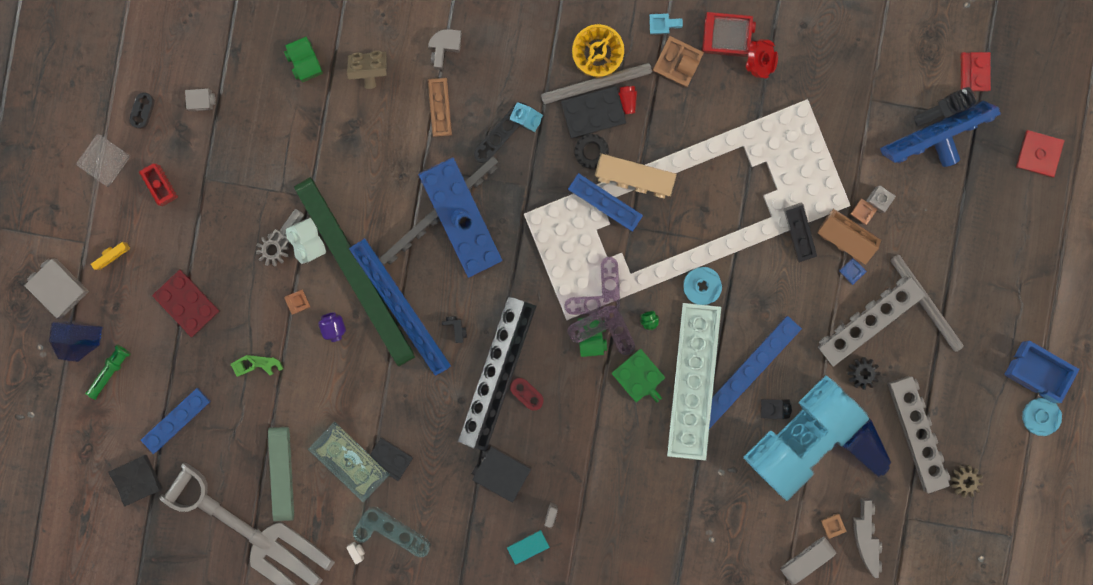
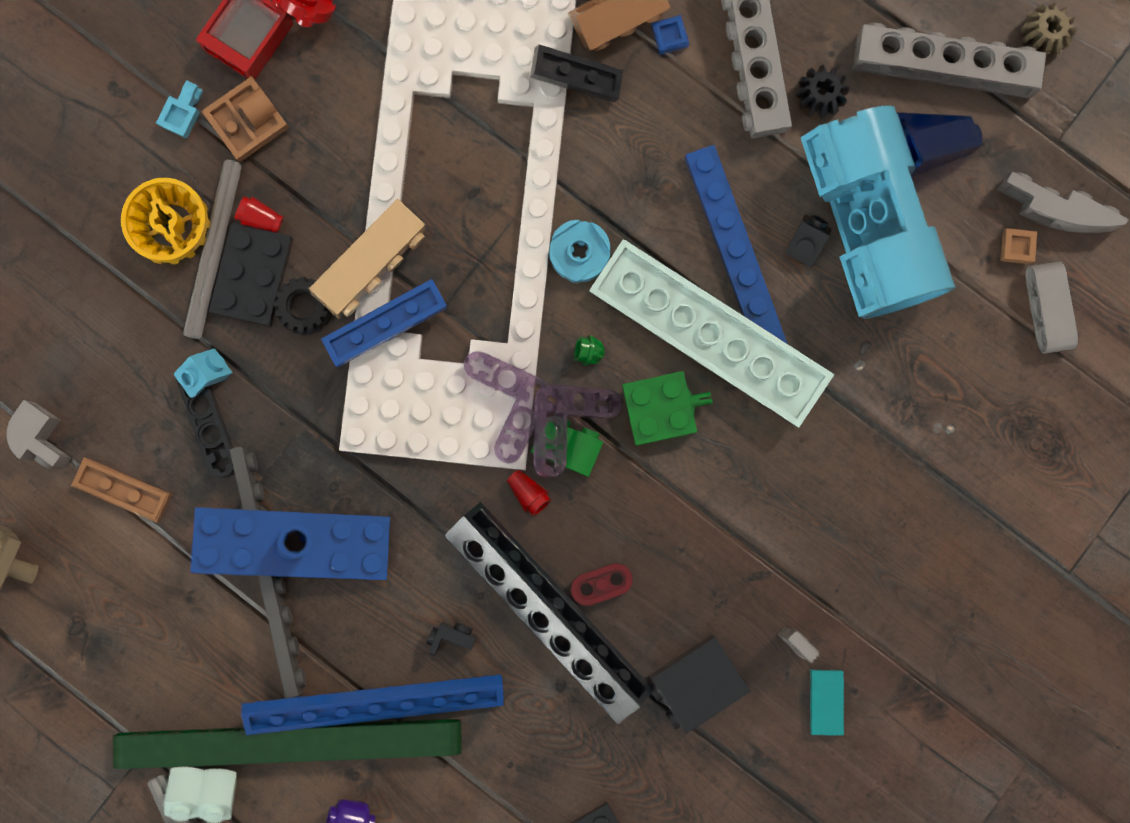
camera: 60 degrees left, 5 degrees down
(555, 328) = (530, 494): none -> red cone

